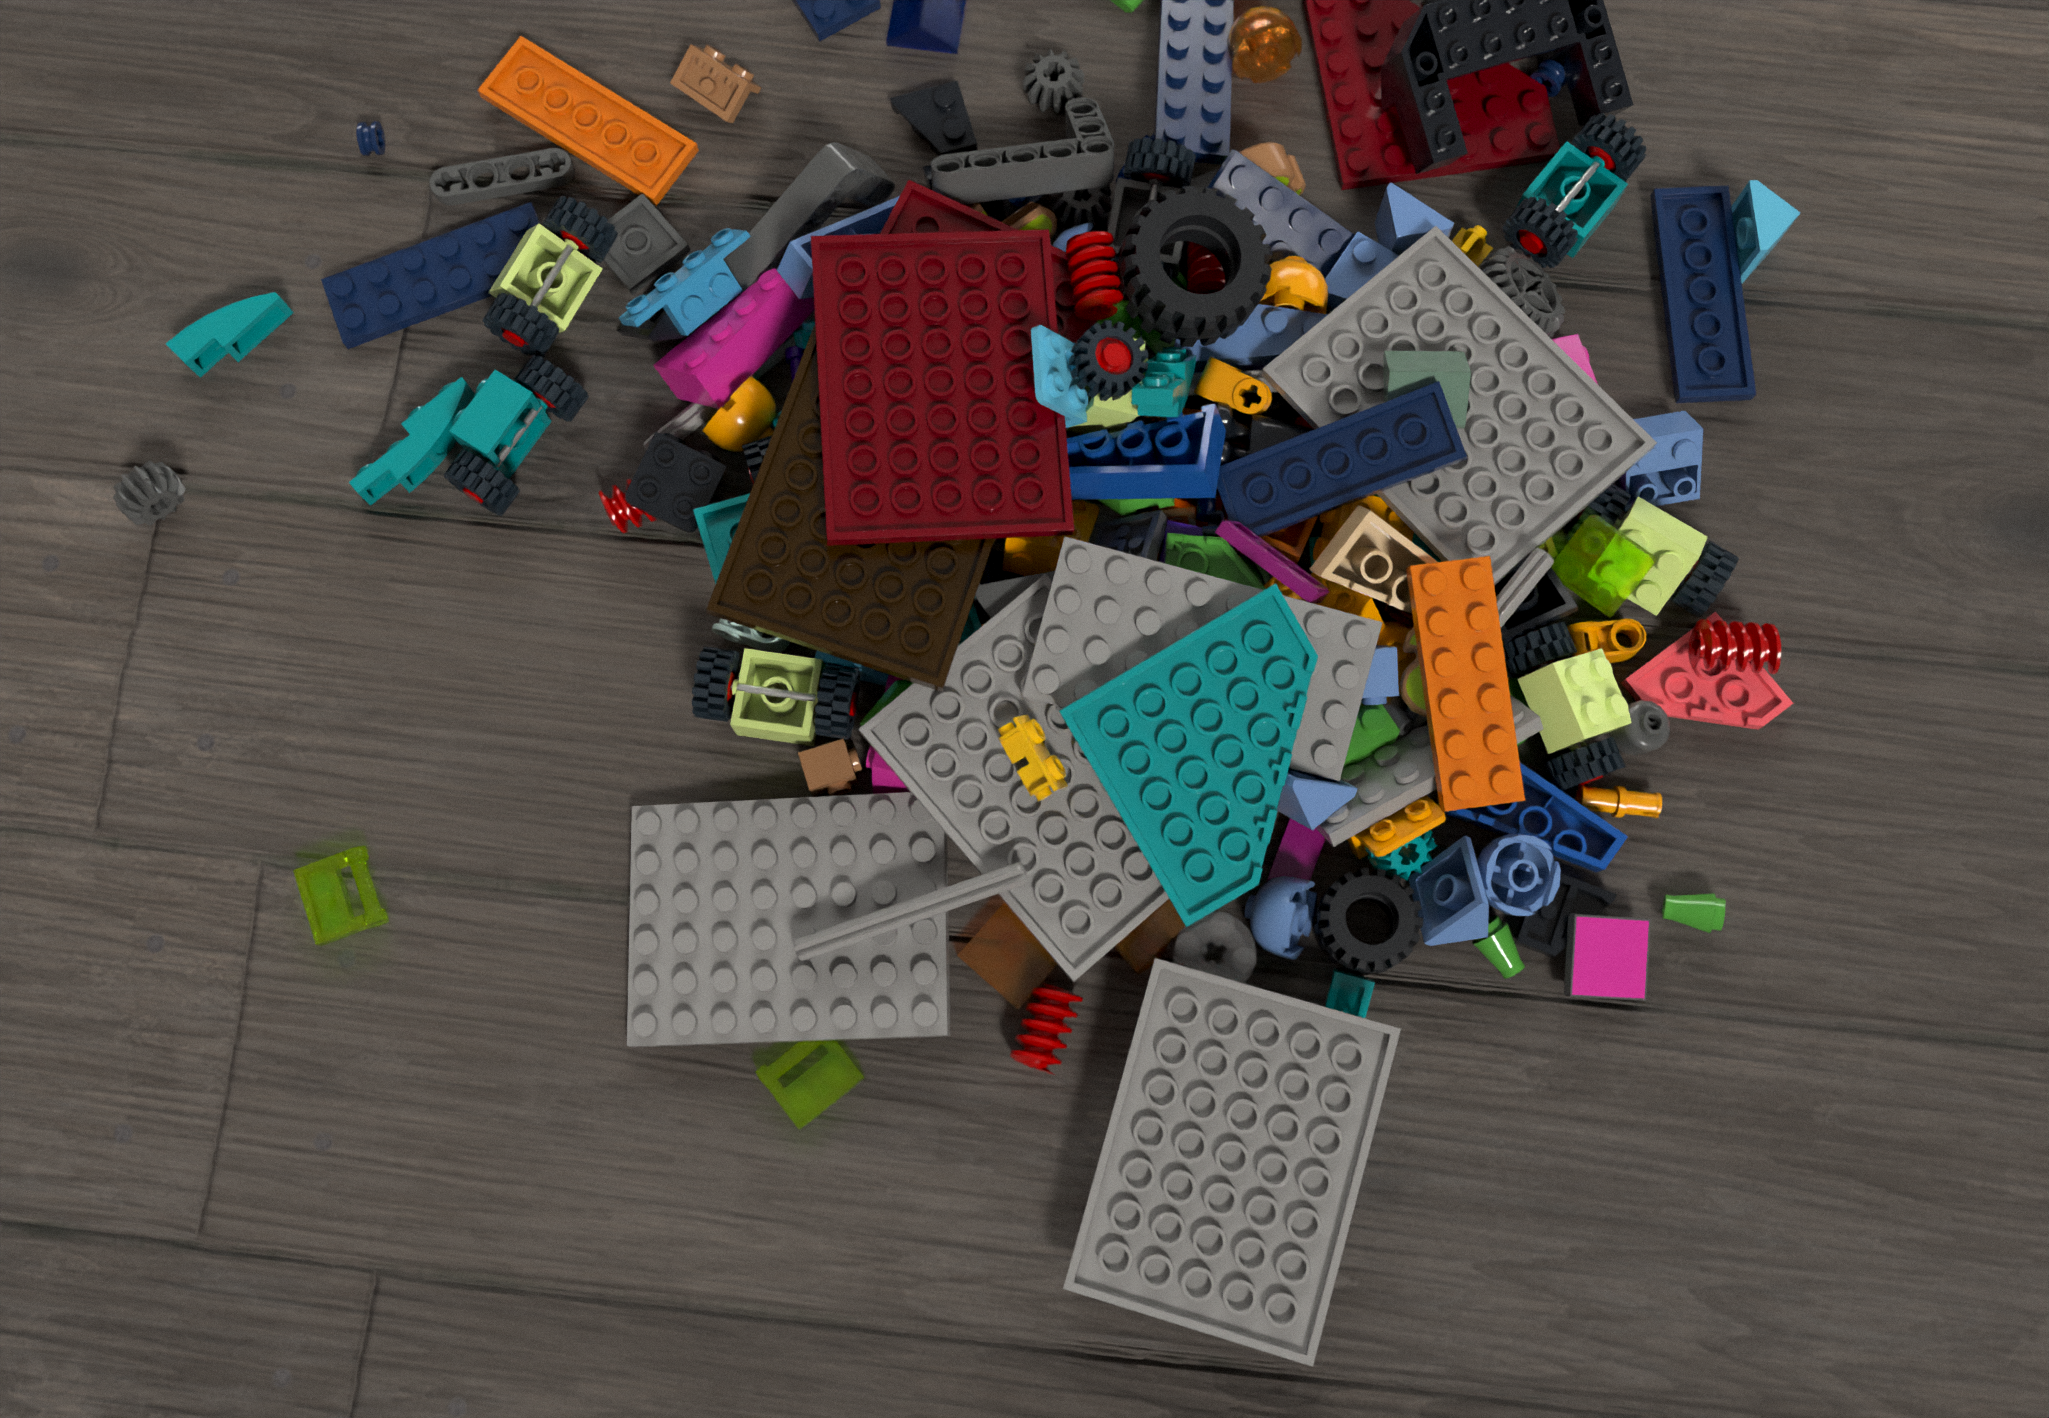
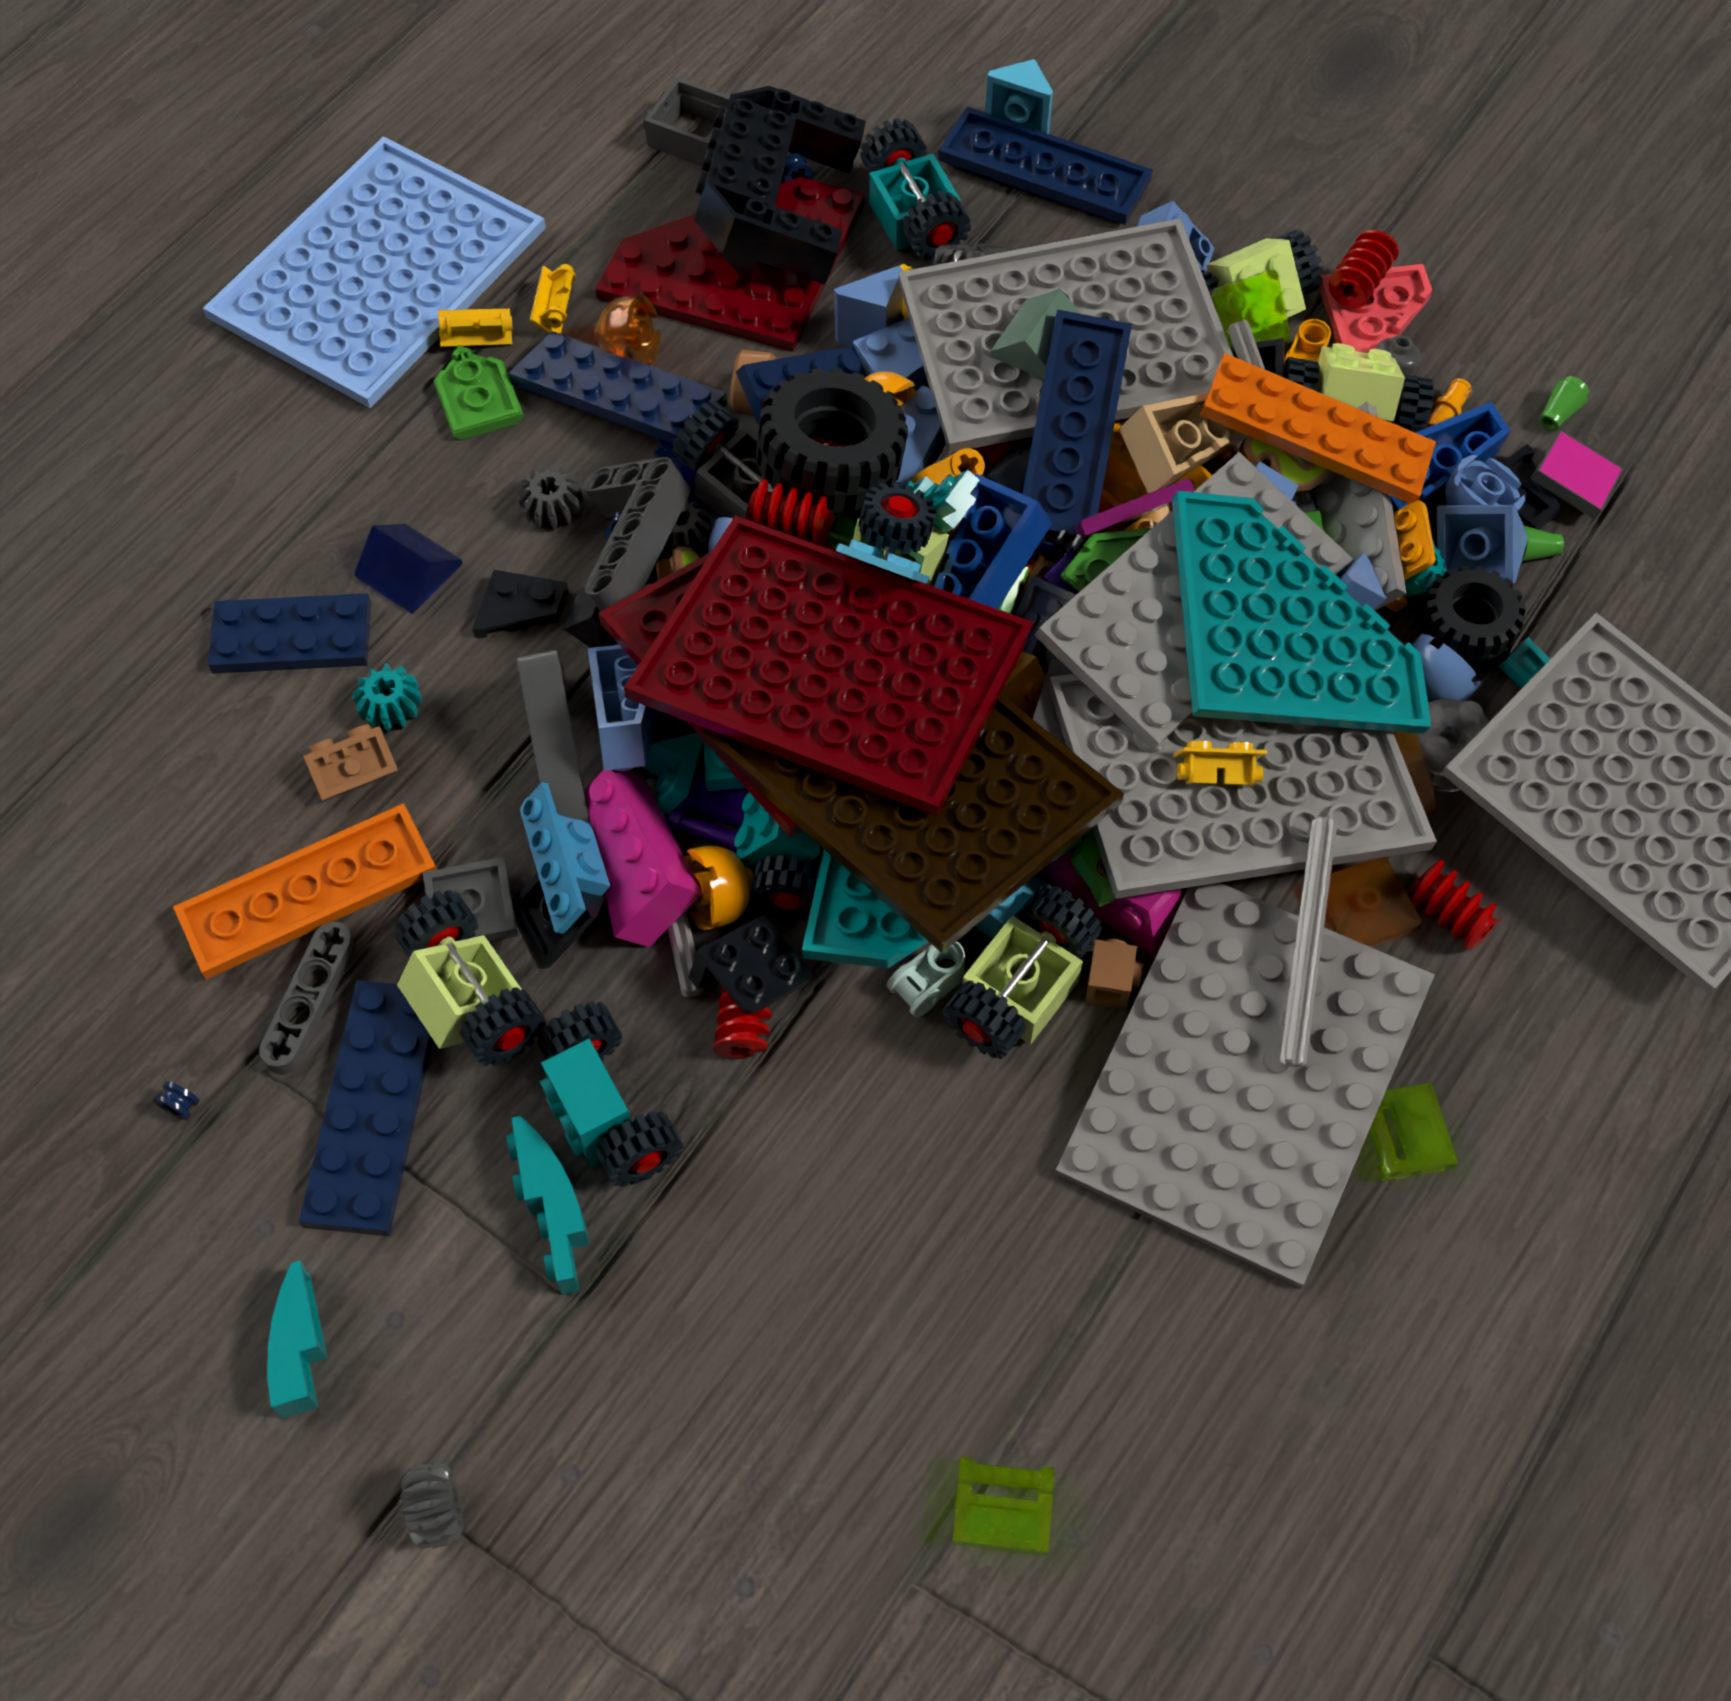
camera: 65 degrees left, 15 degrees down
(787, 73) = (387, 697): none -> teal gear

